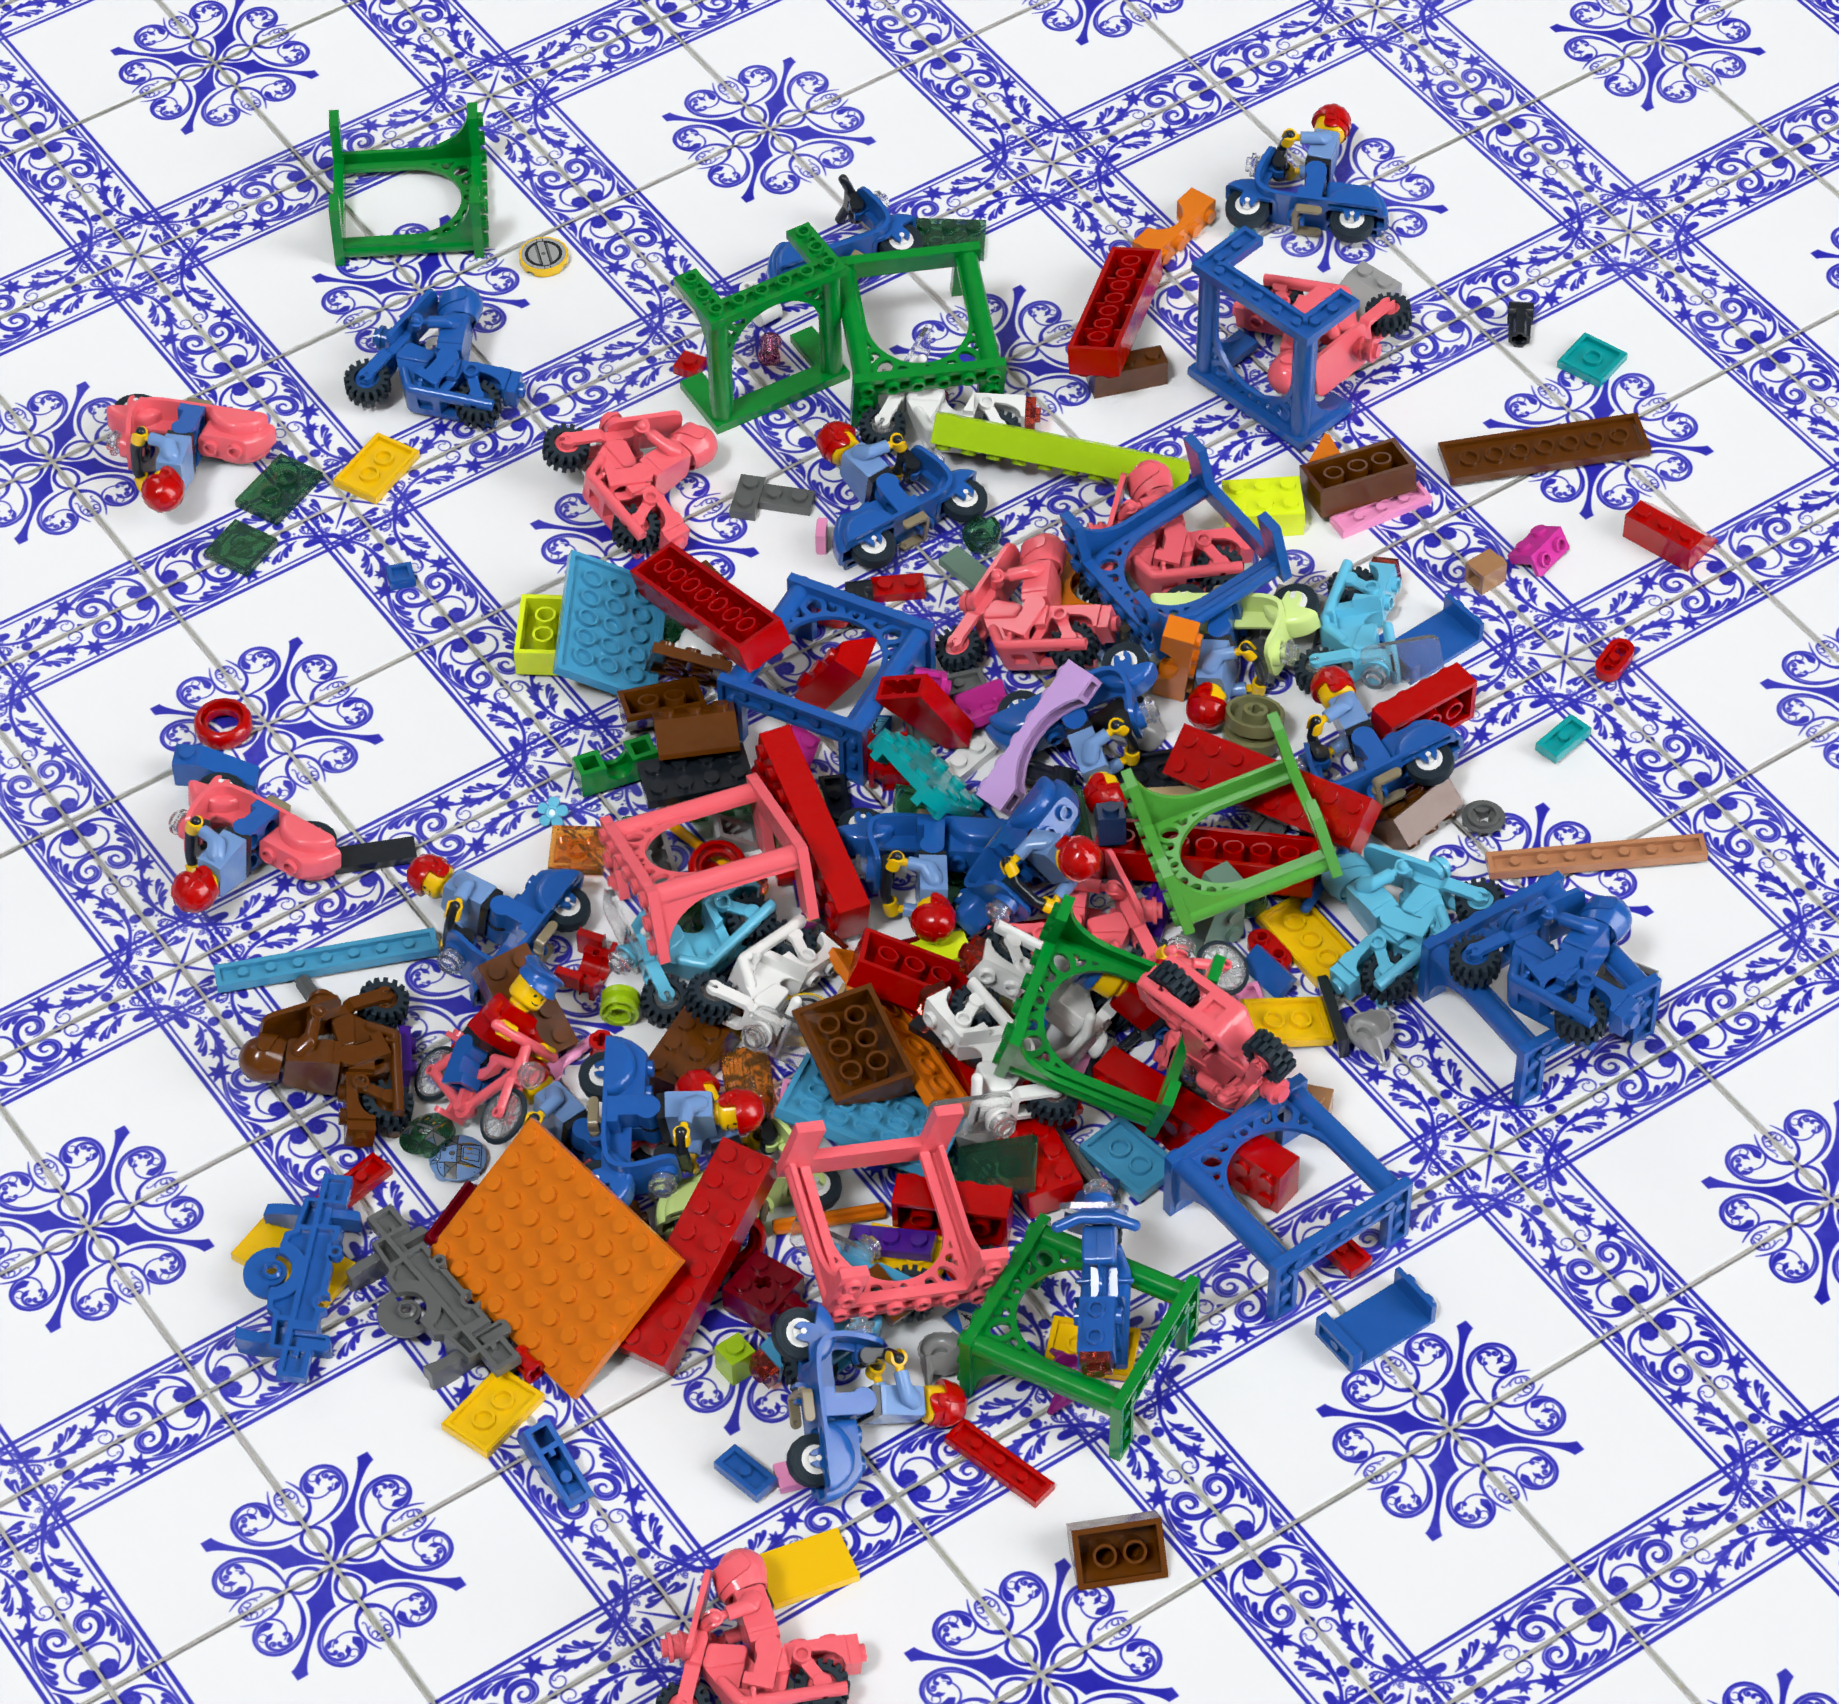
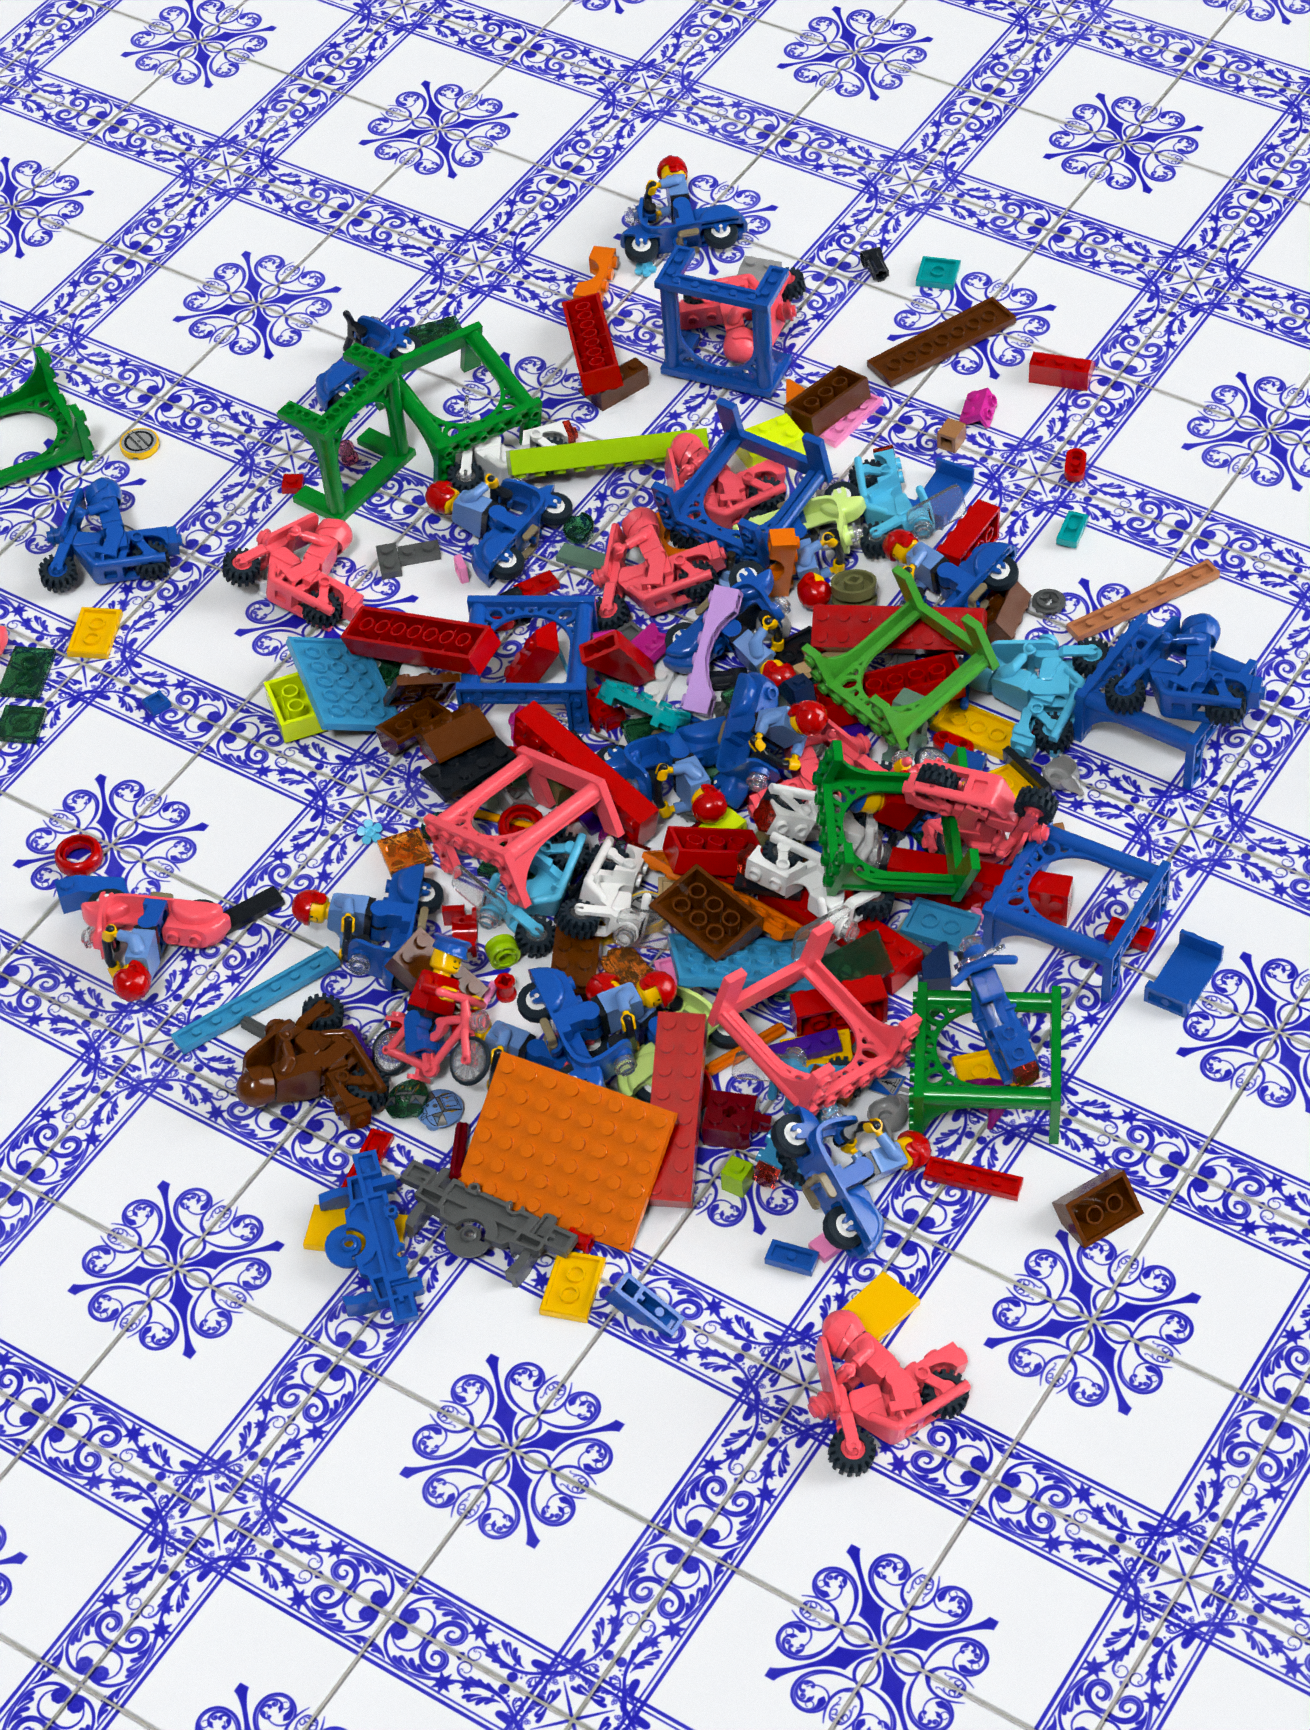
camera: 20 degrees left, 0 degrees up
(597, 775) = (390, 792): green arch -> none

